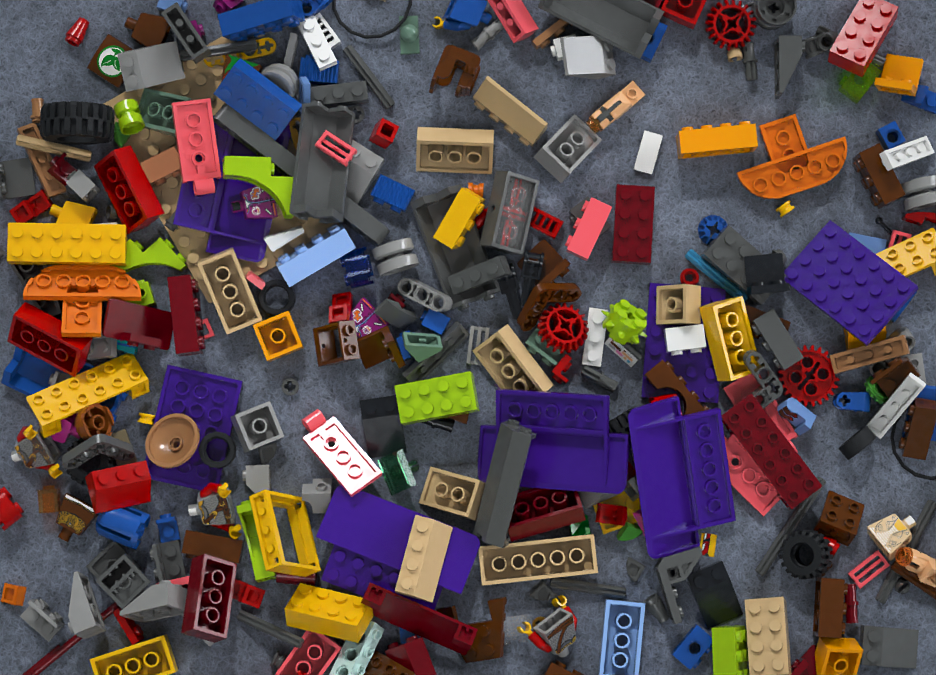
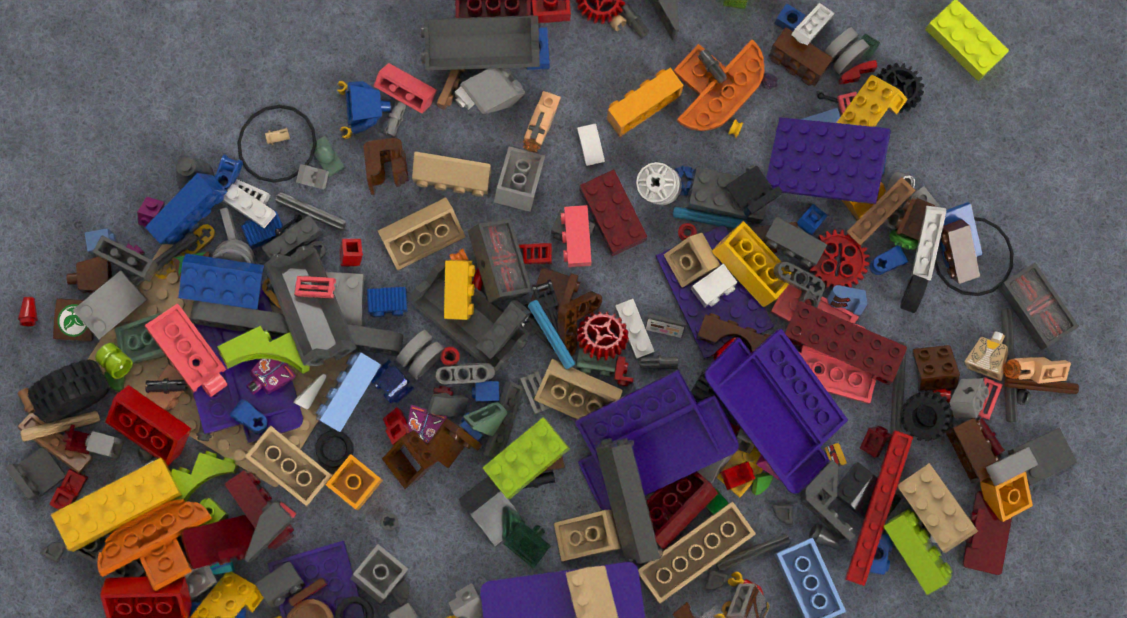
camera: 30 degrees left, 5 degrees down
(74, 213) = (109, 473): yellow torso -> none
(162, 164) = (165, 386): none -> black pin
(169, 389) = (280, 584): none -> dark grey brick
(185, 335) = (269, 526): none -> dark grey slope
(188, 408) = (308, 591): none -> reddish brown tile
(218, 227) = (246, 415): none -> blue piece
(256, 280) = (306, 443): coral tile -> none
(304, 91) = (260, 253): medium blue tile -> none
(344, 460) = (474, 560): hinge -> none
(354, 76) = (297, 218): none -> black hinge
(386, 47) = (312, 176): none -> light grey bracket
(424, 268) = (450, 350): none -> red cone
(518, 302) = (551, 334): none -> dark azure axle
(625, 322) = (654, 300): lime brick -> none
(697, 225) = (669, 182): none -> white wheel
(717, 610) = (878, 508): none -> red tile
(749, 551) = (875, 440): none -> dark red bracket
(795, 141) = (712, 66): none -> dark grey axle
(806, 327) = (812, 219): none -> blue slope
(839, 182) = (769, 81): none -> clear purple plate
(851, 560) = (969, 398): none -> light grey brick
(852, 638) = (1011, 466): none -> light grey beam

